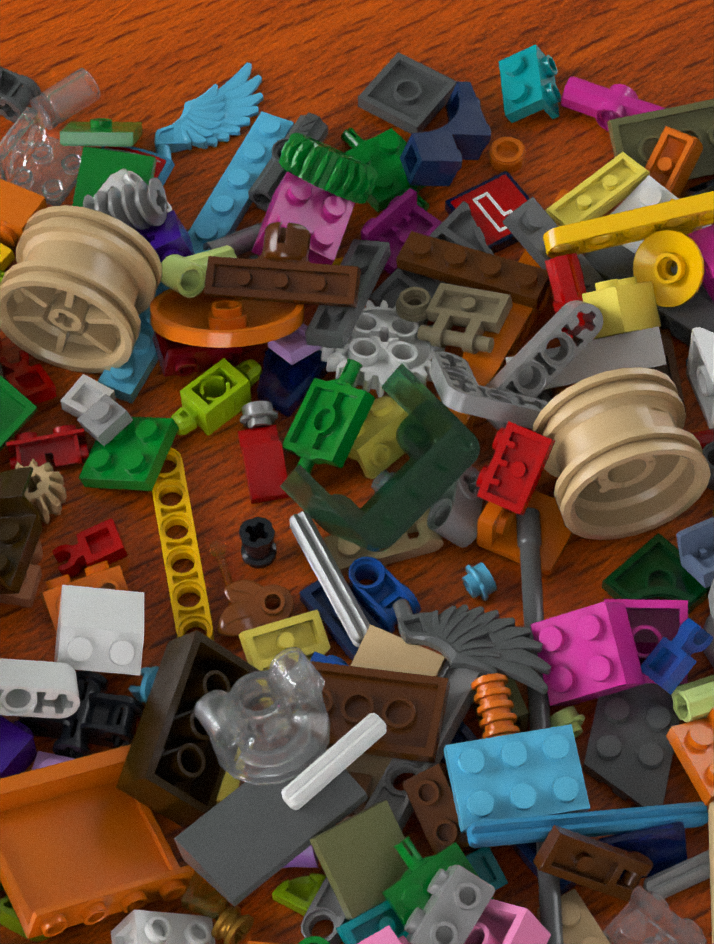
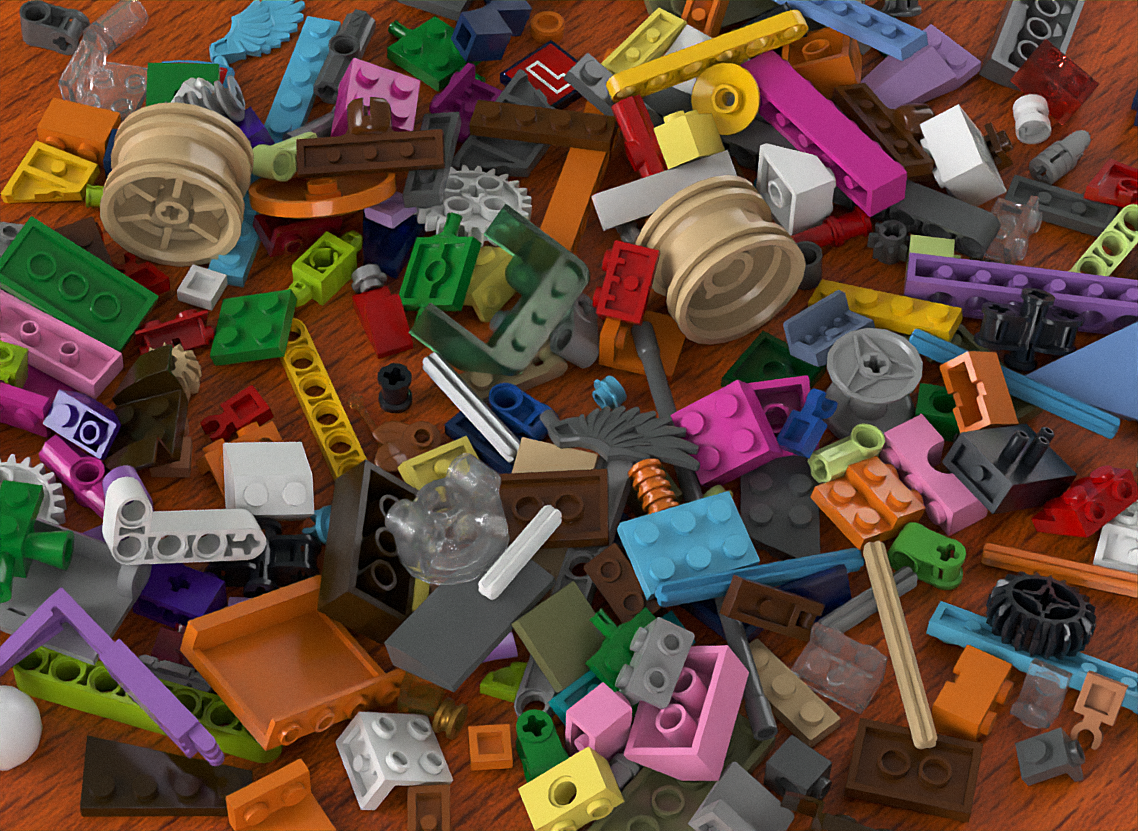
camera: 15 degrees left, 5 degrees down
(101, 133) = (159, 50): green plate -> none
(105, 419) = (225, 299): light grey plate -> none
(328, 168) = (389, 50): green gear -> none
(413, 304) = (495, 163): dark tan plate -> none
(461, 393) = (564, 225): light grey beam -> none
(467, 308) = (546, 158): dark tan plate -> none
(535, 354) = (629, 195): light grey beam -> none

